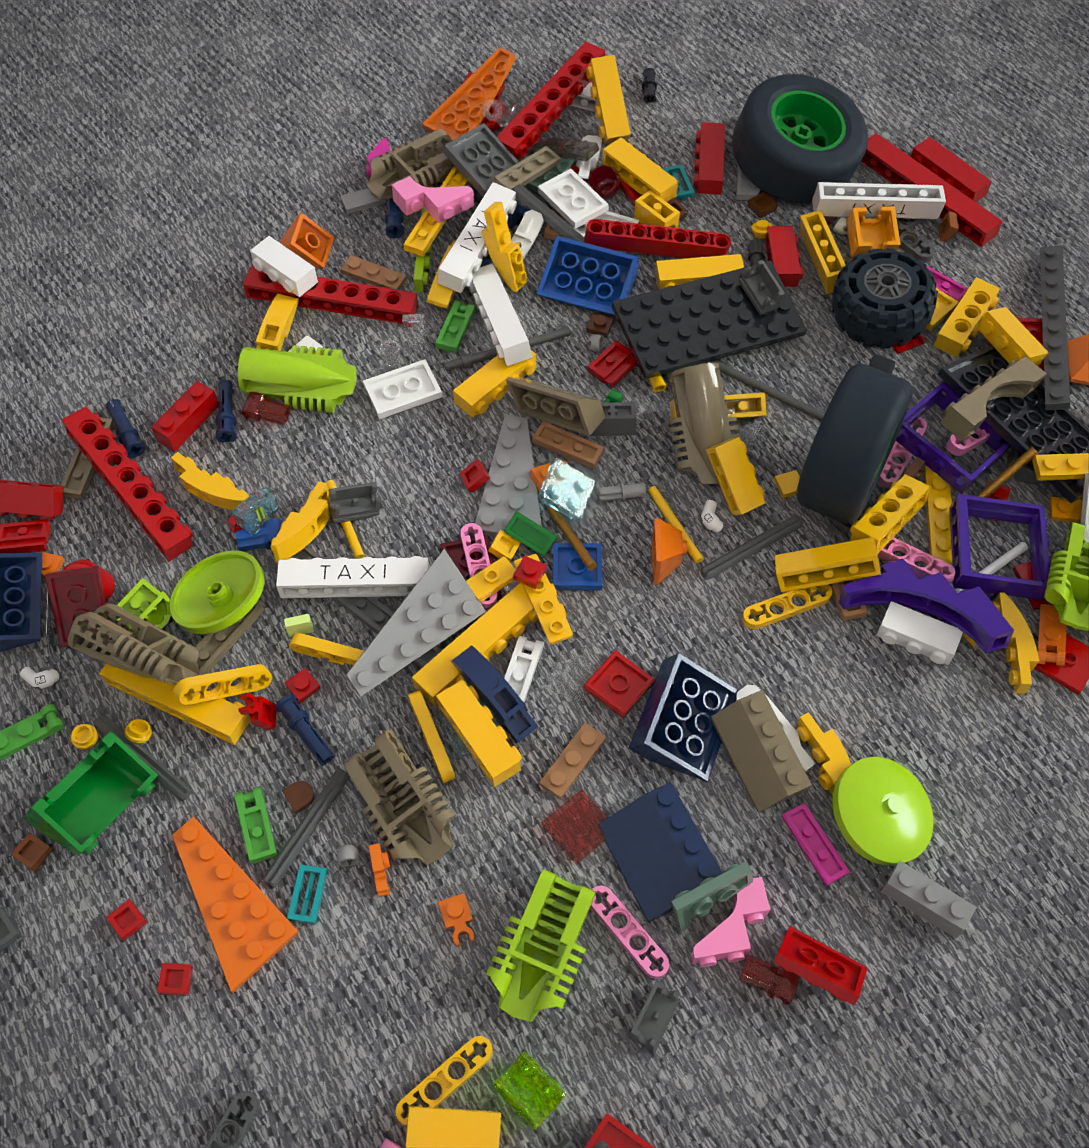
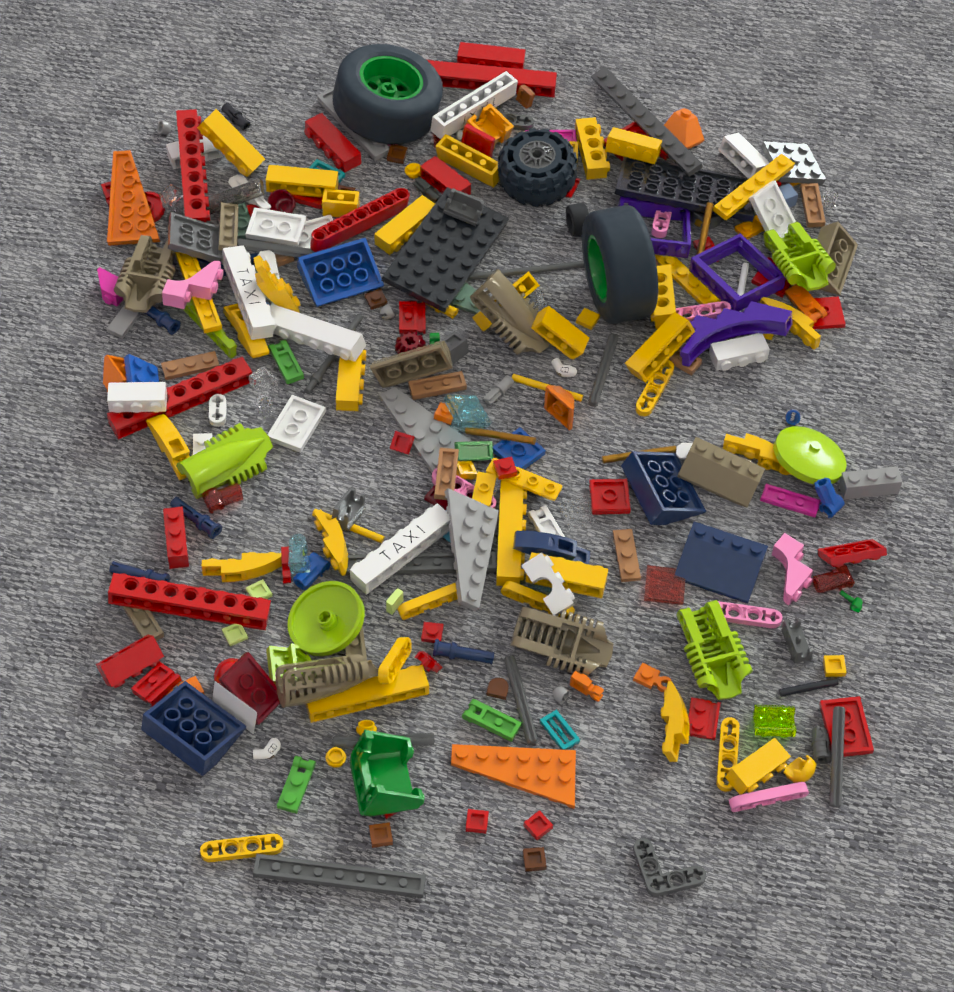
camera: 45 degrees left, 5 degrees down
(131, 1014) = (534, 859): none -> reddish brown plate
(138, 544) = (234, 634): none -> yellowish green tile
(201, 520) = (259, 589): none -> yellowish green tile
(318, 251) = (140, 370): none -> blue plate
(353, 331) = (222, 410): none -> white beam
(433, 986) = (677, 722): none -> yellow slope
(440, 749) = (559, 598): none -> white arch
(462, 1014) = (703, 718): none -> red plate
(473, 534) = (446, 472): none -> medium nougat plate
(498, 110) = (154, 200): clear plate -> none
(583, 384) = (409, 342): none -> dark red gear
(615, 1082) = (808, 687): none -> black bar
(667, 1084) = (834, 666): none -> yellow plate
(673, 649) = (622, 456): none -> pearl gold bar
(701, 899) = (772, 553): sand green wing -> none
(770, 1030) = (856, 604): none -> green hand
(847, 236) = (478, 140): none -> red plate
(856, 880) = (830, 500): none -> blue piece
(907, 746) = (797, 417): none -> blue hinge
(970, 410) = (659, 202): dark tan arch -> none

